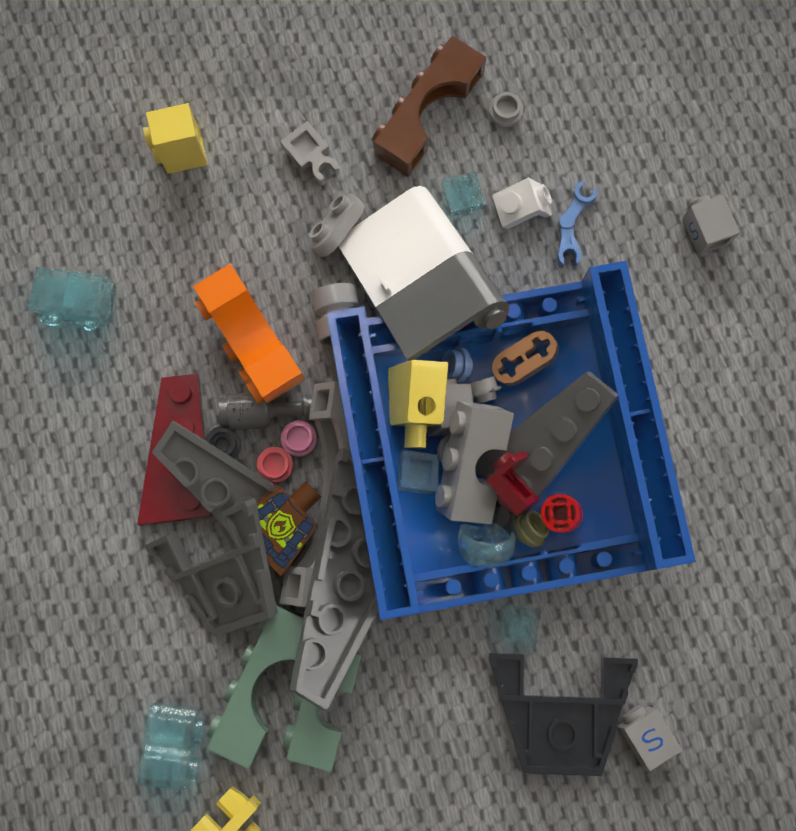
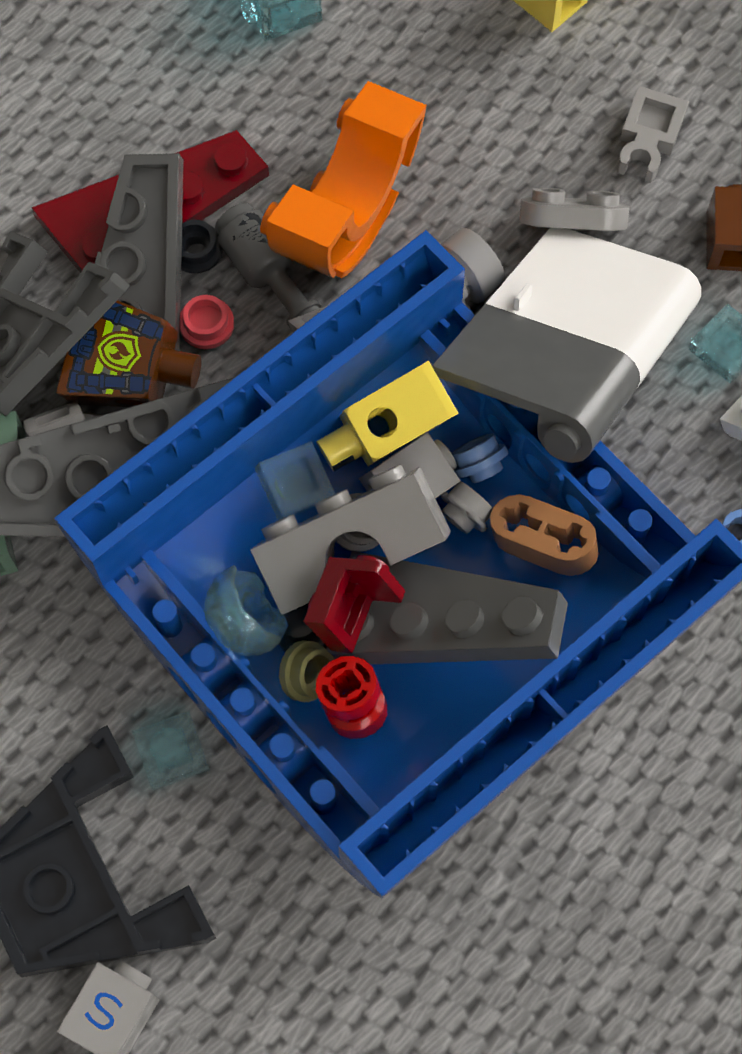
camera: 60 degrees right, 10 degrees down
(299, 438) = (258, 330): bright pink plate -> none

